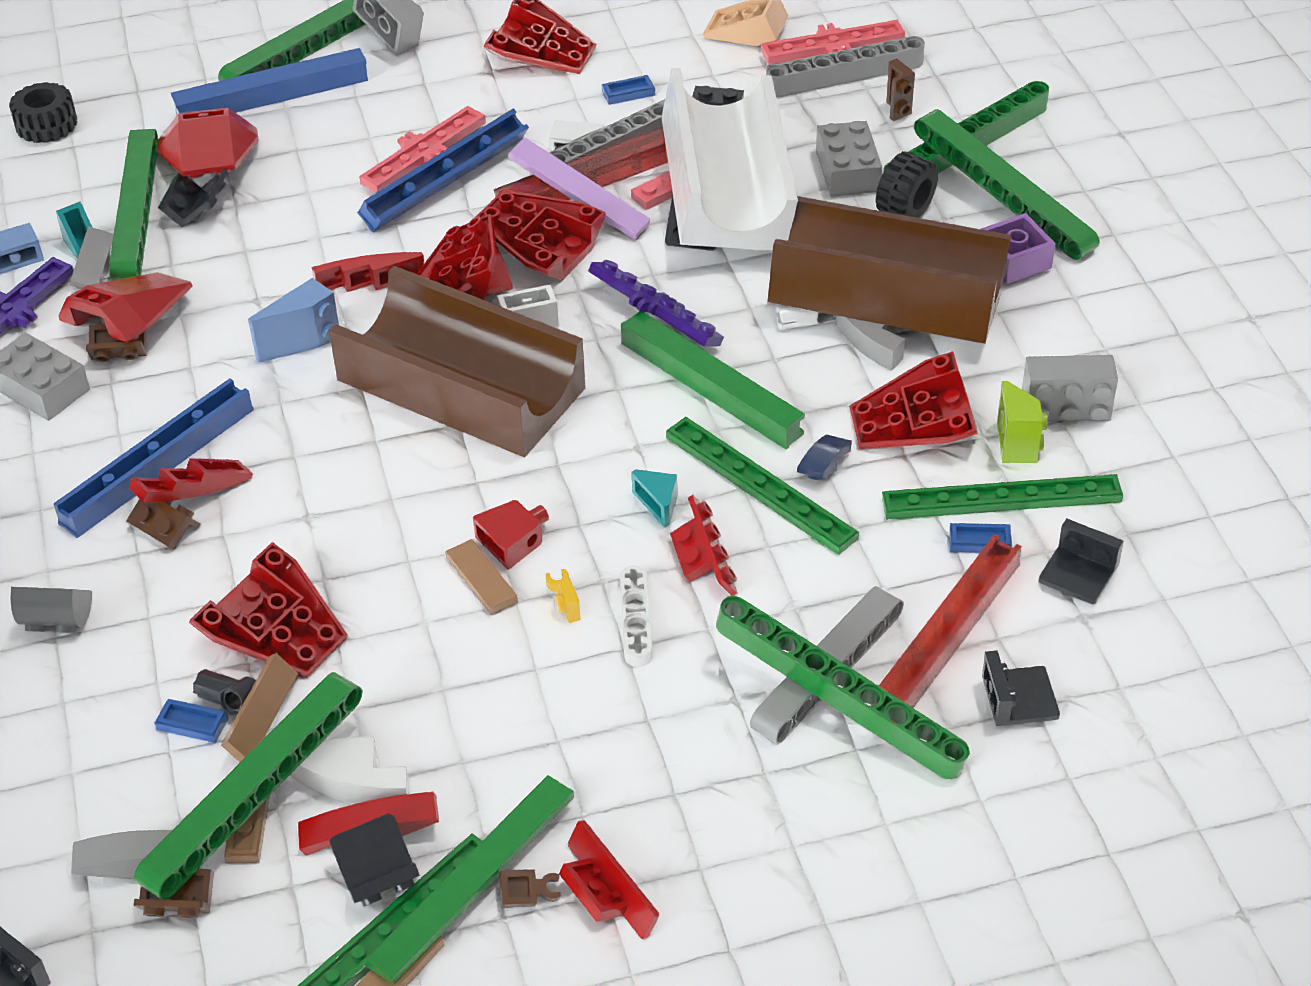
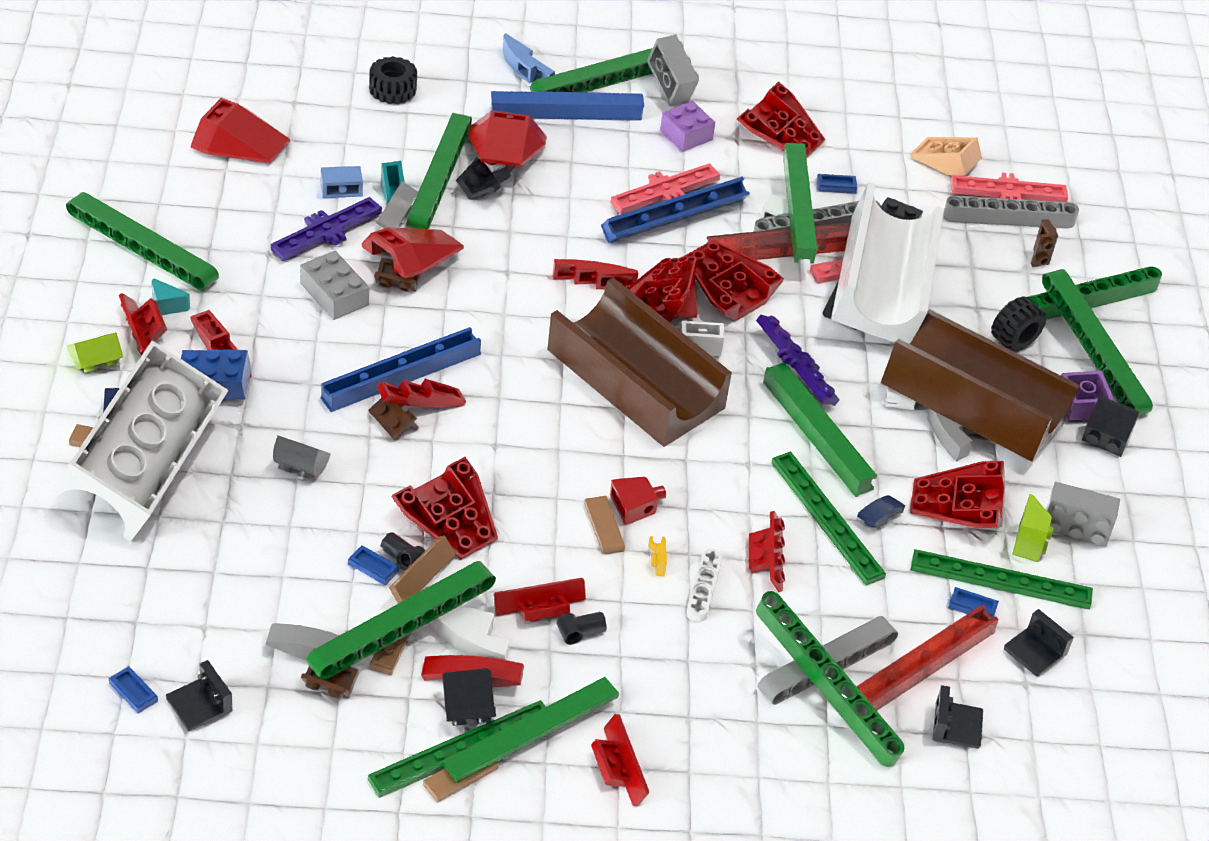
camera: 10 degrees right, 0 degrees up
(199, 50) = (522, 62): none -> medium blue slope
(294, 322) = (529, 298): medium blue slope -> none
(426, 71) = (687, 126): none -> medium lavender brick
(430, 699) = (540, 600): none -> red bracket
(487, 722) = (575, 628): none -> black piece
(522, 888) = (562, 746): reddish brown plate -> none
(578, 187) = (771, 253): lavender tile -> none
(594, 120) = (799, 202): none -> green tile
(657, 492) = (750, 501): teal slope -> none
(848, 158) = (984, 287): light grey brick -> none
(1061, 274) = (1110, 426): none -> black slope

